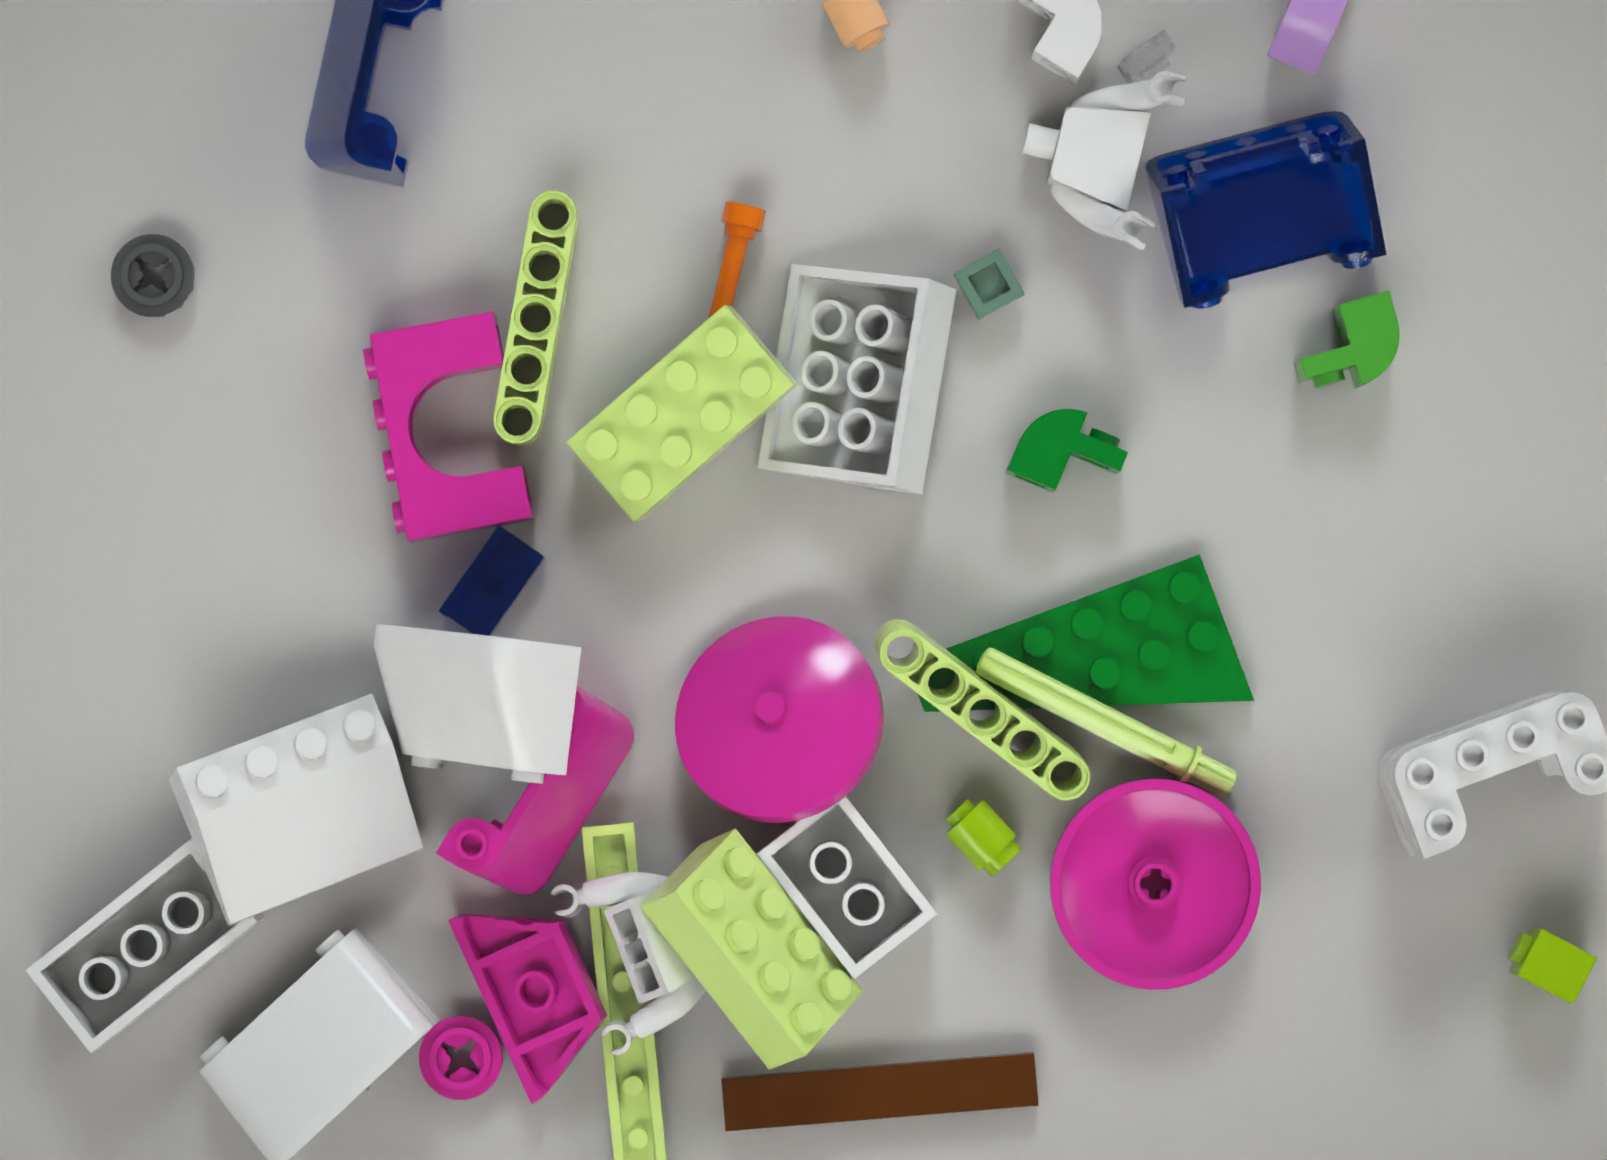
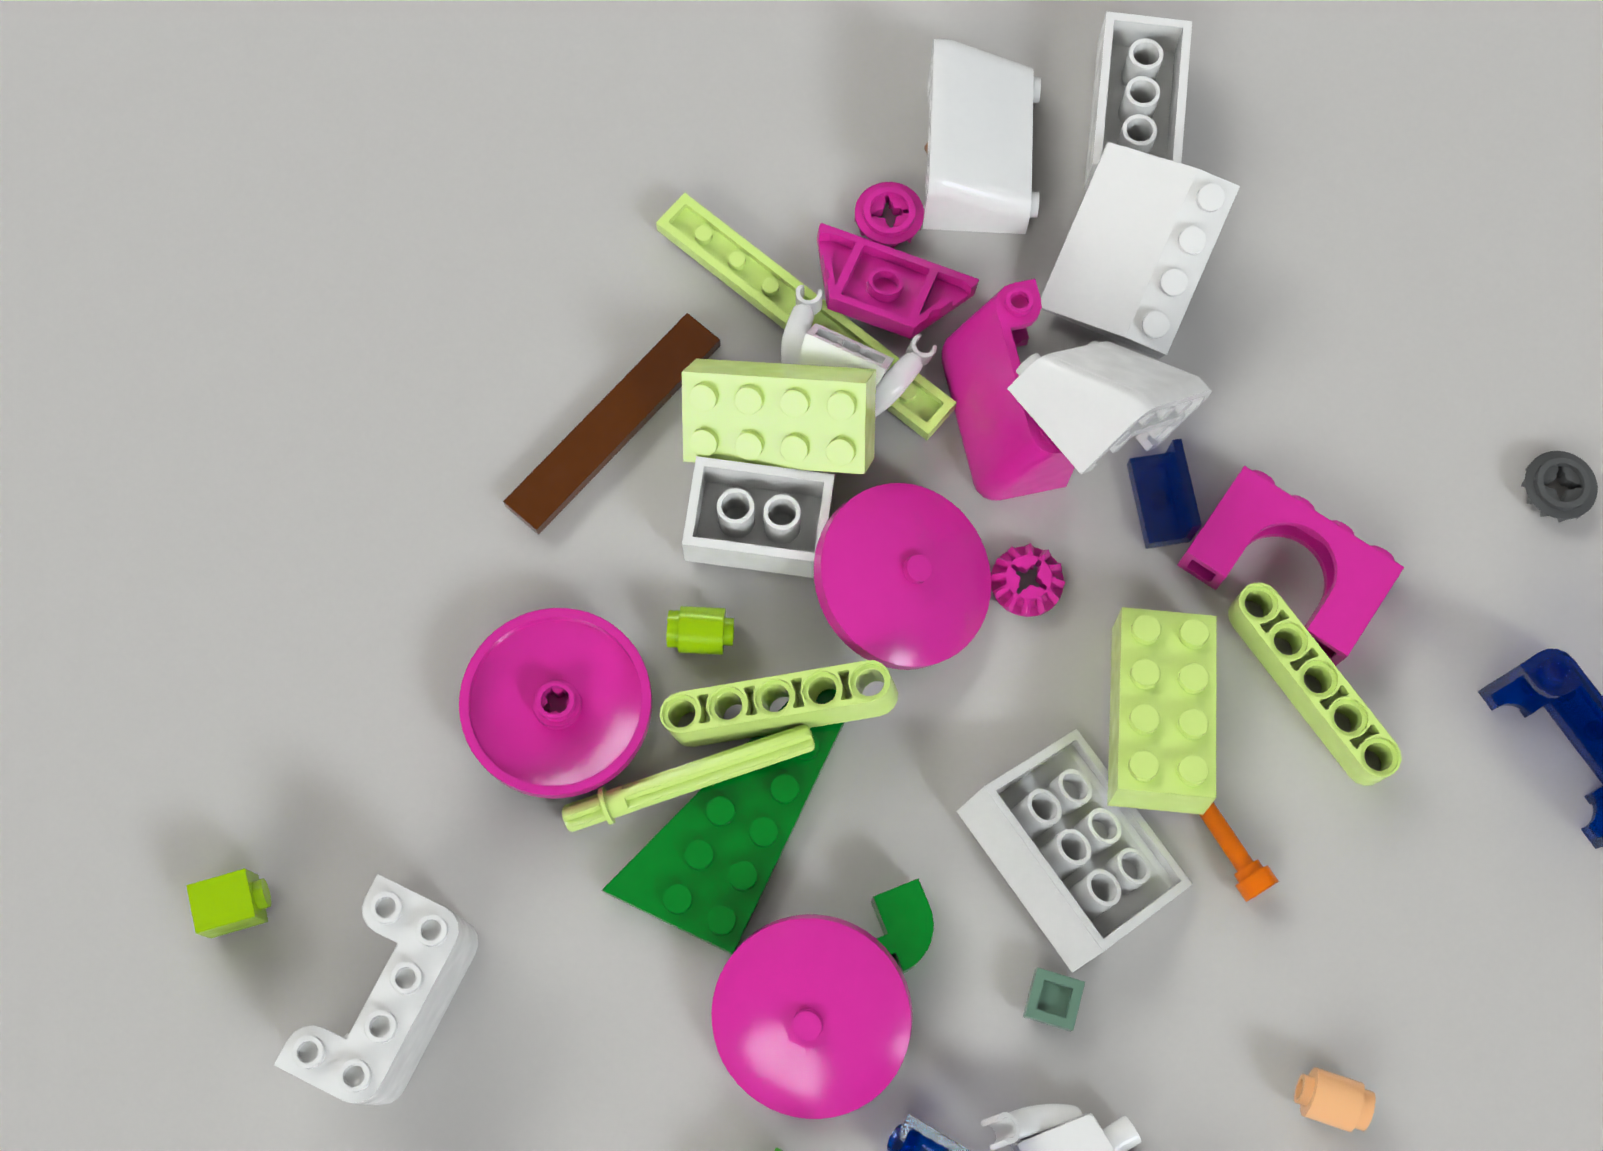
camera: 135 degrees right, 15 degrees down
(693, 638) = (1032, 600): none -> dark pink gear
(1186, 447) = (812, 1016): none -> dark pink dish

